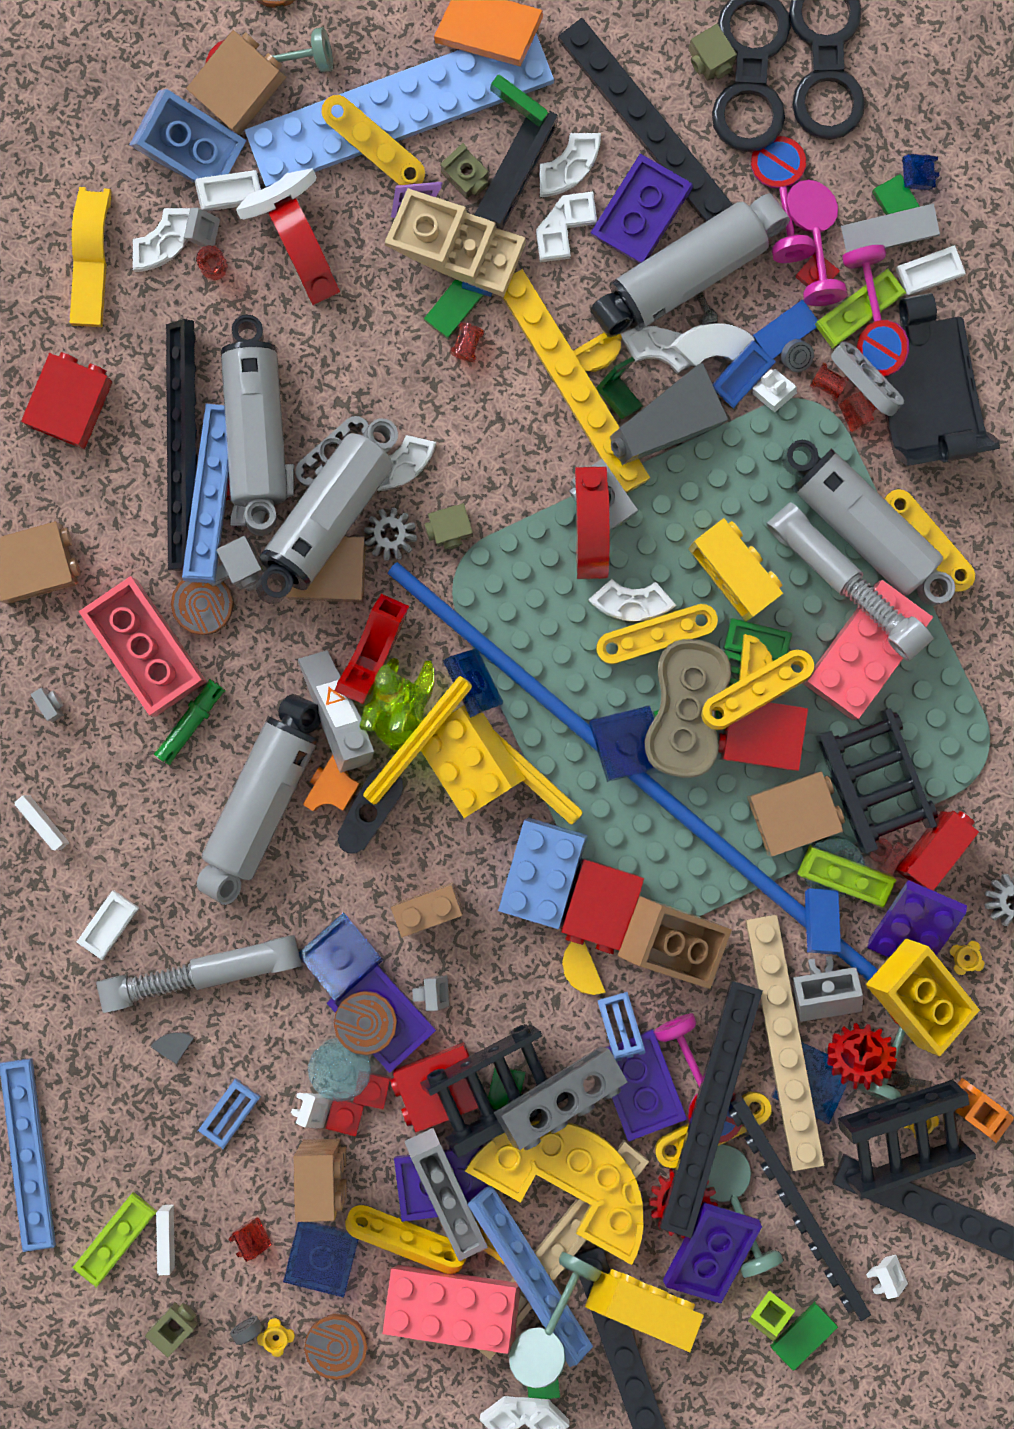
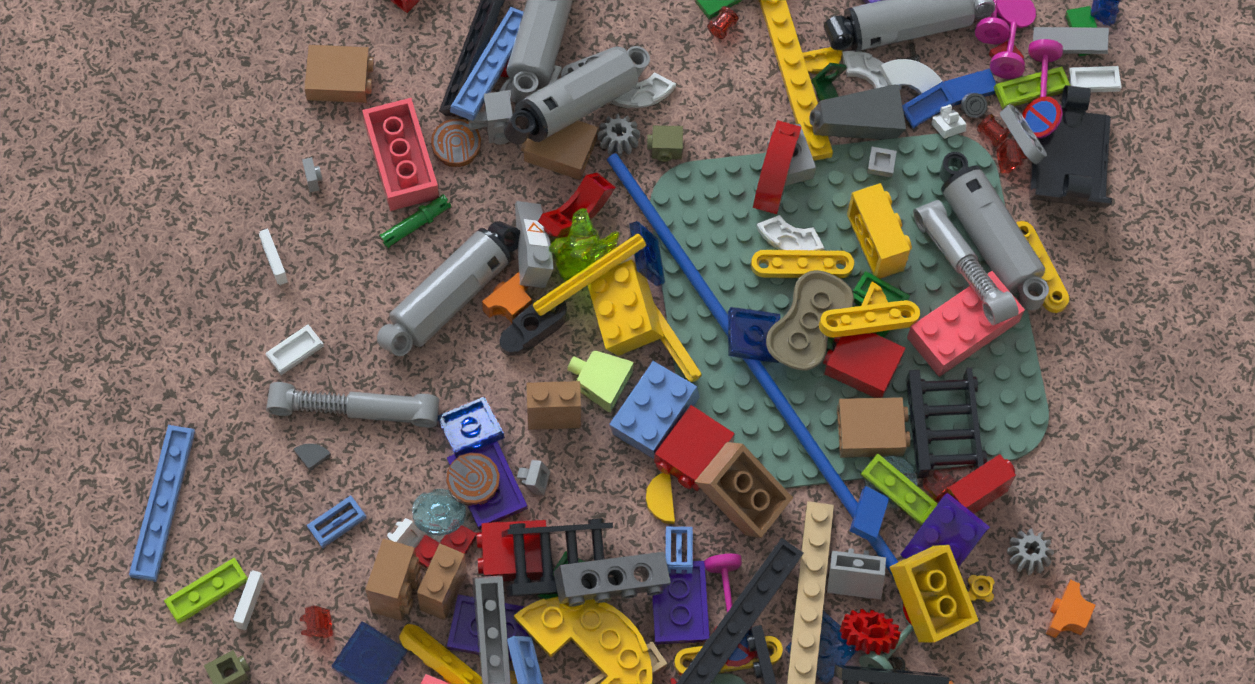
camera: 15 degrees right, 20 degrees down
(372, 1160) = (442, 582): none -> medium nougat brick
(468, 848) = (602, 377): none -> yellowish green torso
(711, 471) = (881, 162): none -> light grey plate

